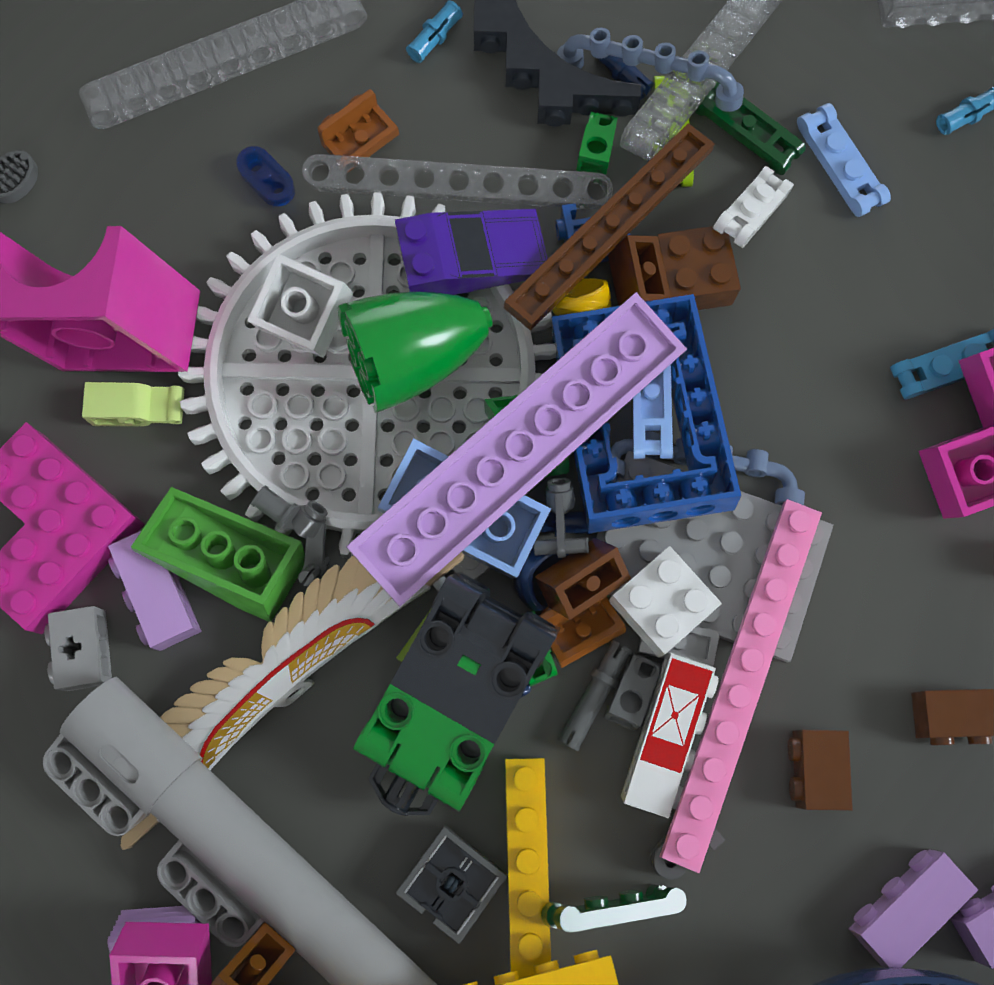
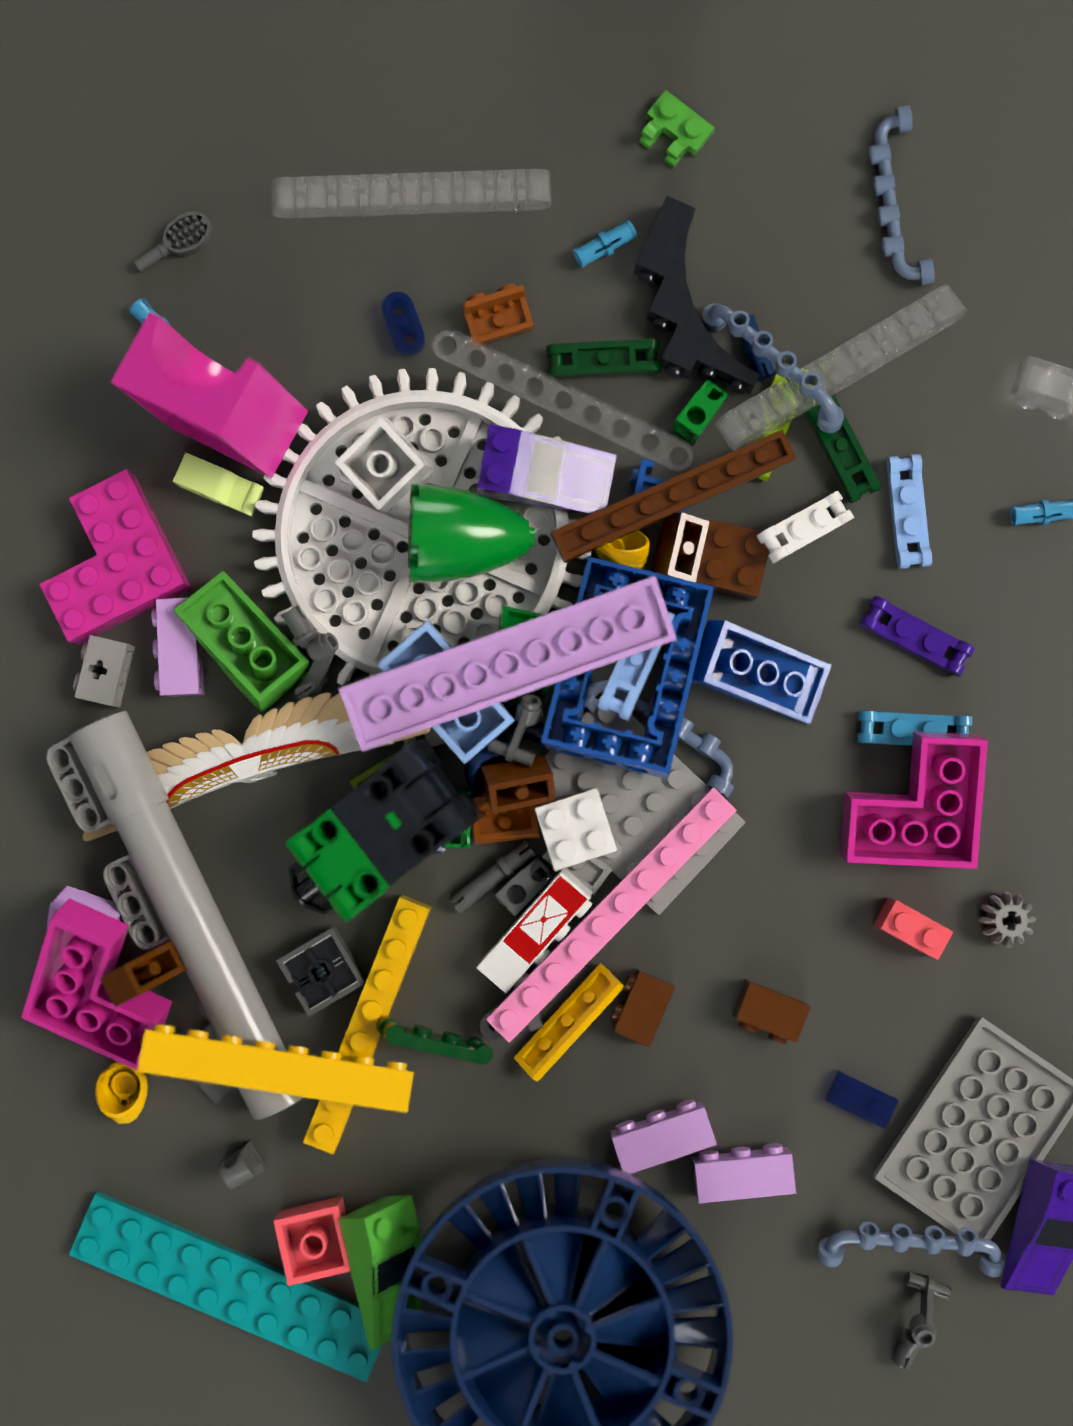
camera: 20 degrees right, 10 degrees up
(481, 132) = (603, 358): none -> dark green plate
(749, 823) = (568, 1022): none -> yellow plate
(775, 365) = (759, 671): none -> blue slope
(910, 273) = (916, 636): none -> dark purple plate

